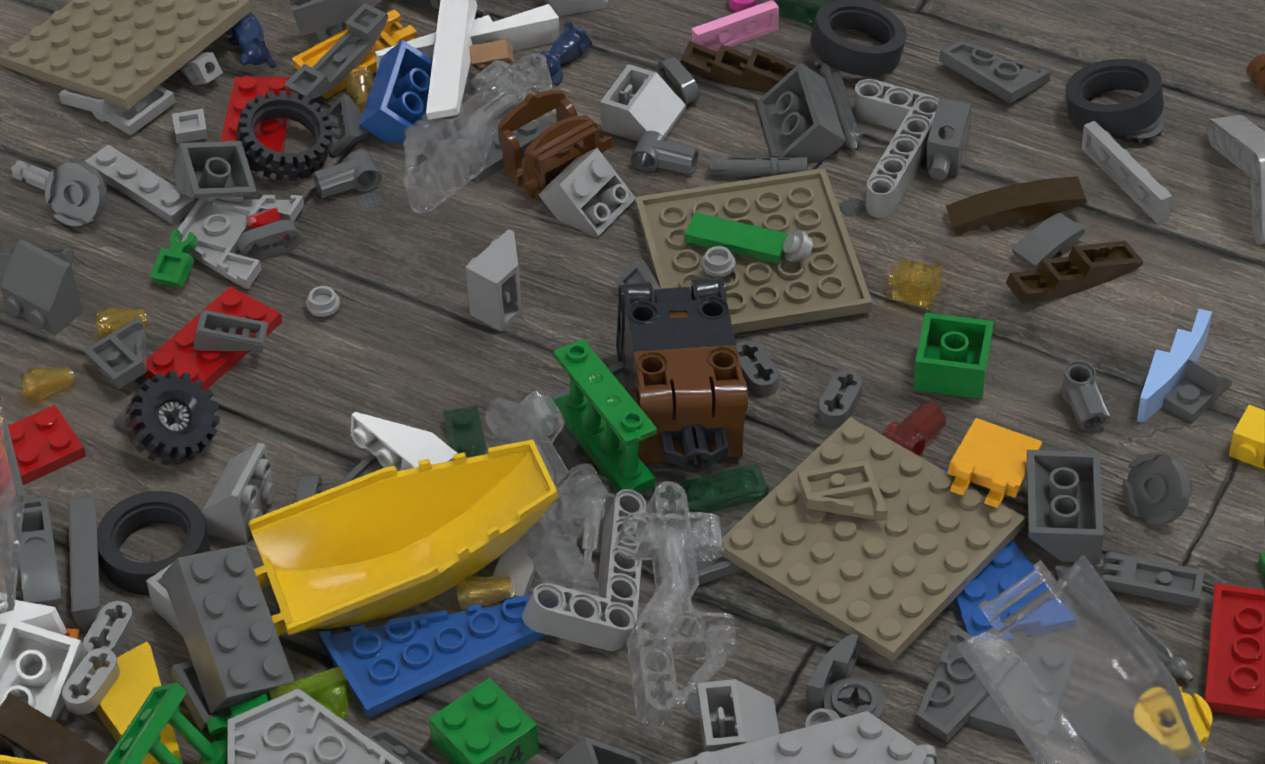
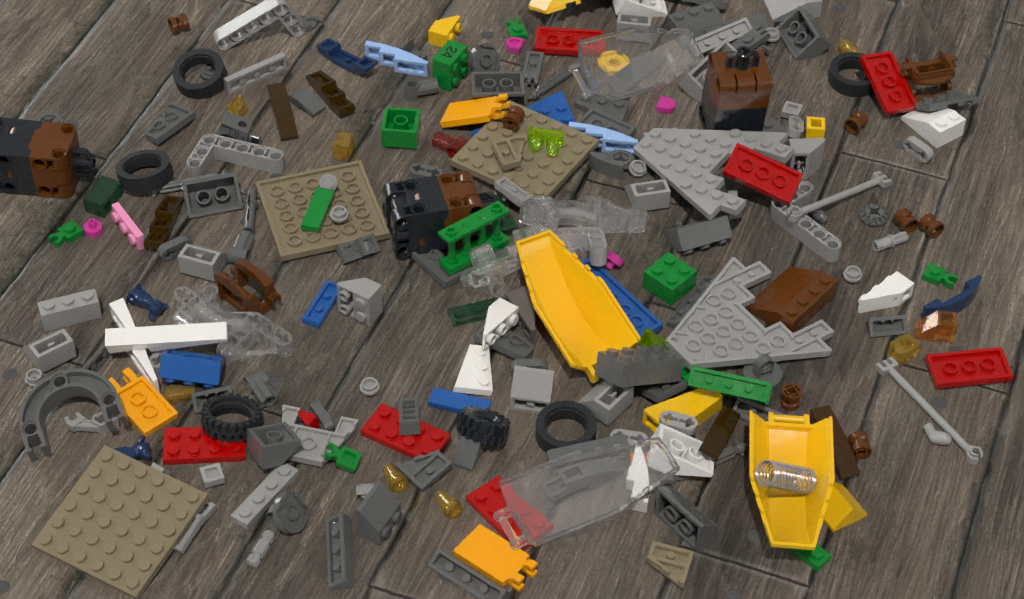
camera: 100 degrees left, 0 degrees up
(105, 287) = (364, 489): none -> light grey plate
(259, 411) = (455, 401): none -> blue tile
(312, 433) = (475, 372): none -> white wing
(363, 31) = (153, 400): dark grey slope -> none
(486, 53) = (160, 317): medium nougat piece -> none
(535, 257) = (321, 305): none -> blue tile
(558, 656) = (614, 259): none -> dark pink tile
(587, 194) = (284, 278): light grey slope -> none
(744, 496) = (510, 191): none -> light grey plate
(880, 541) = (552, 138): none -> clear neon green tile
(912, 678) = (608, 139): none -> light blue slope
(941, 500) = (513, 118): none -> reddish brown wheel
(1031, 151) = (237, 105): none -> clear yellow plate
(1132, 425) = (450, 65): none -> green brick
(1182, 297) = (344, 59): none -> dark blue slope
(1240, 562) = (515, 44): none -> dark pink tile

